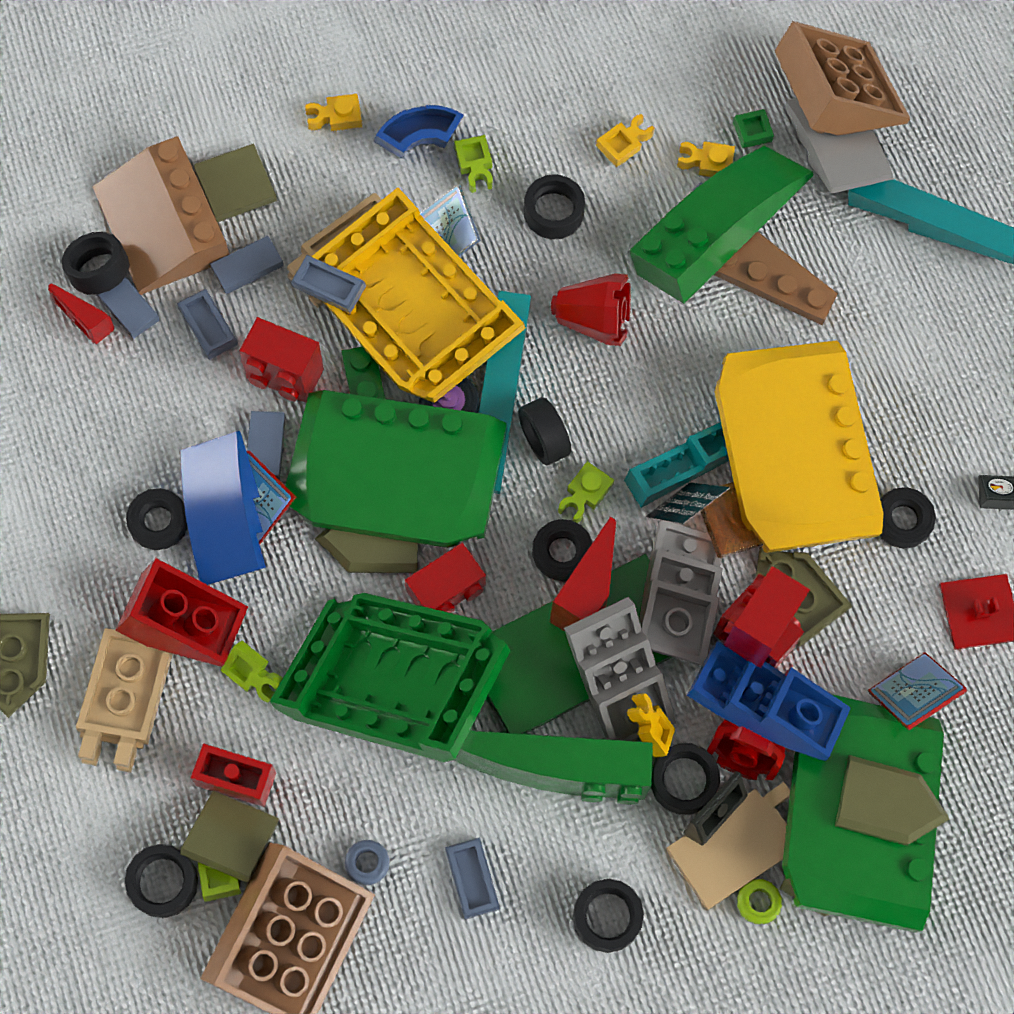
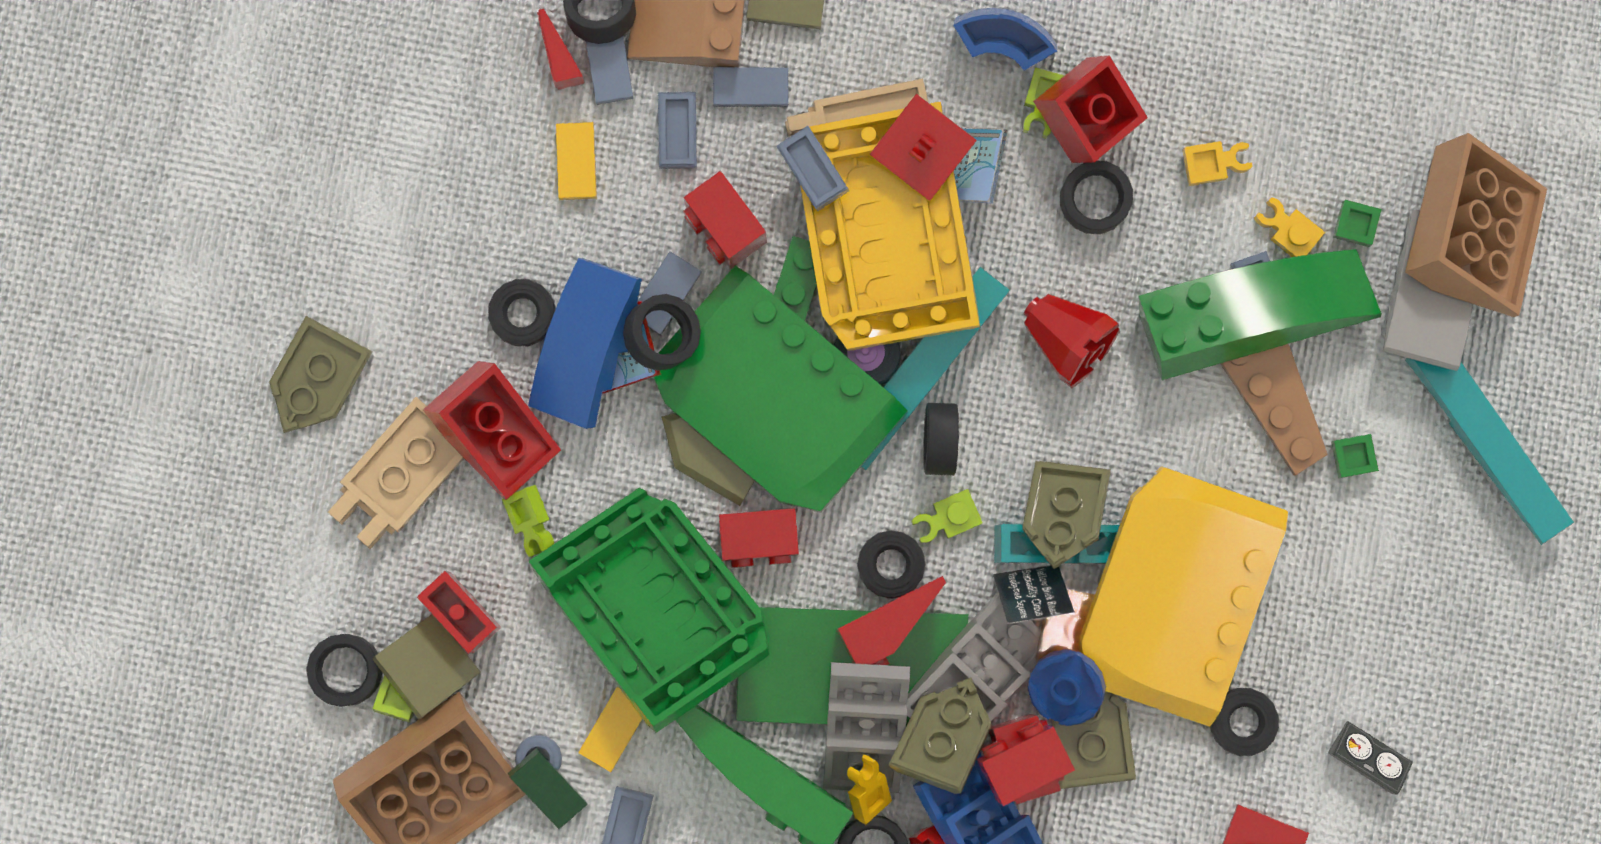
camera: 30 degrees right, 15 degrees up
(139, 385) = (576, 161): none -> yellow tile
(284, 440) = (684, 316): none -> black tyre
(389, 880) = (547, 788): none -> dark green tile
(404, 224) = (923, 147): none -> red piece
(416, 803) = (611, 731): none -> yellow tile
(513, 143) = (1090, 109): none -> red brick
(671, 431) = (1065, 509): none -> olive tile
(688, 644) = (943, 737): none -> olive tile
(754, 552) = (1066, 687): none -> blue tile
(857, 284) = (1354, 456): none -> green plate

